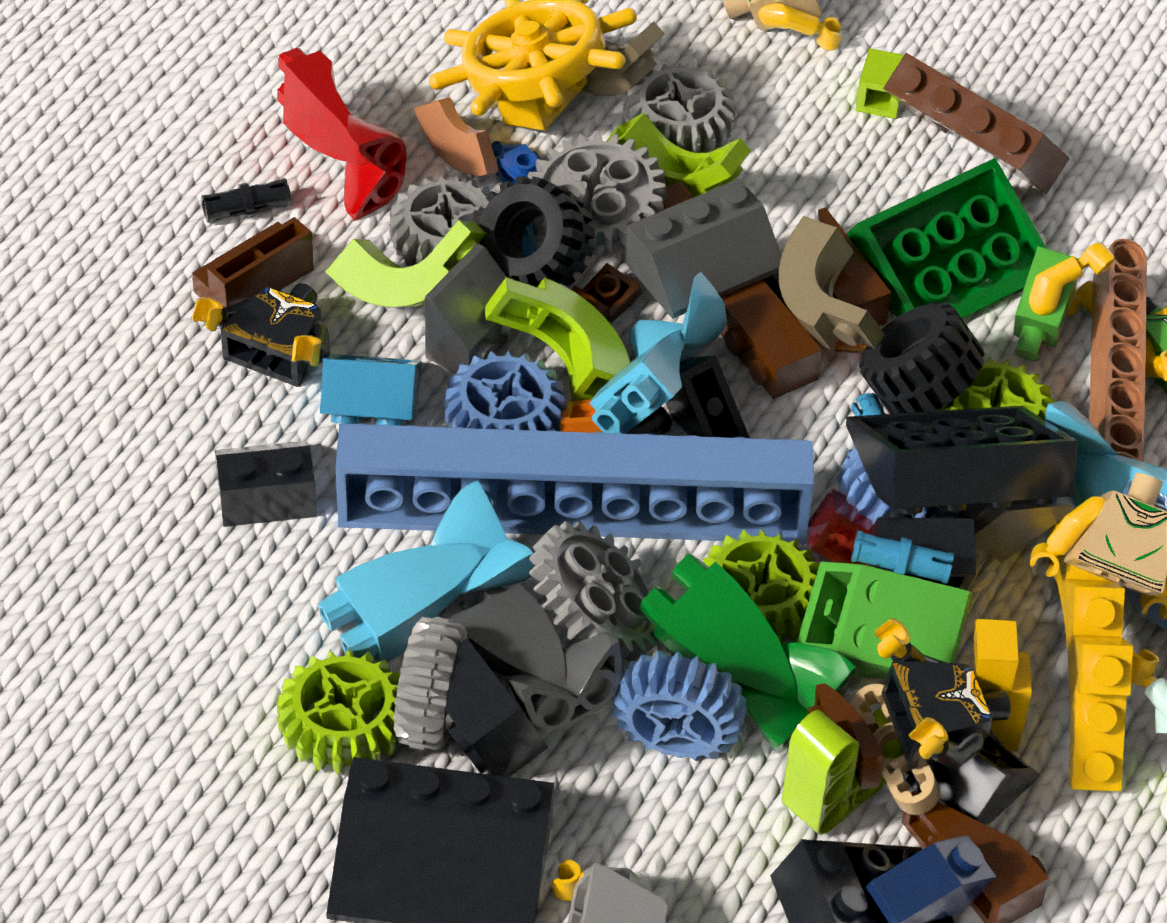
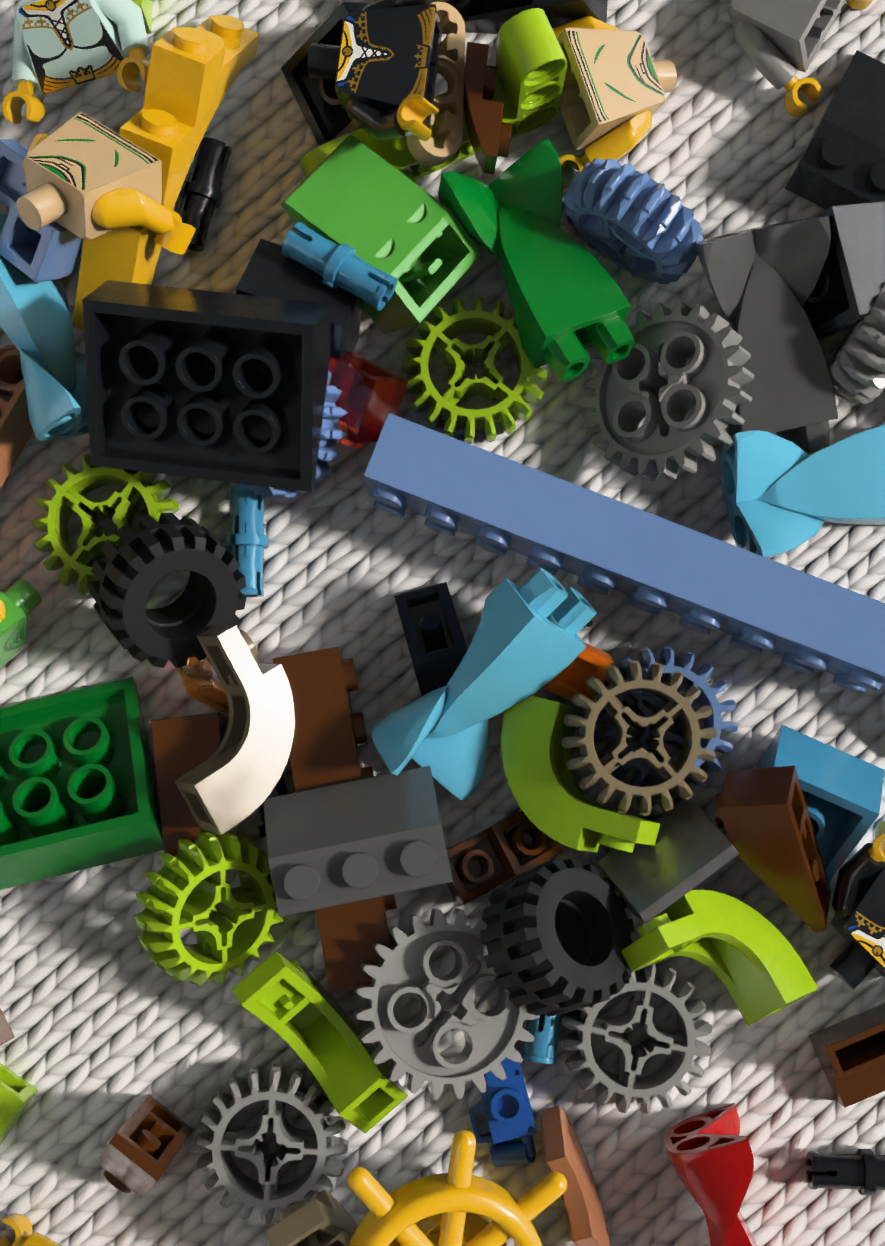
camera: 160 degrees left, 35 degrees up
(390, 336) = (775, 837): none -> reddish brown slope
(524, 358) = (657, 758): none -> dark tan gear
(748, 815) = (608, 89): none -> tan torso
(765, 72) = (143, 1147): none -> reddish brown slope
(798, 187) = (196, 896): none -> lime gear
(1003, 668) = (294, 102): yellow slope -> none
(1050, 652) = (202, 189): none -> black pin

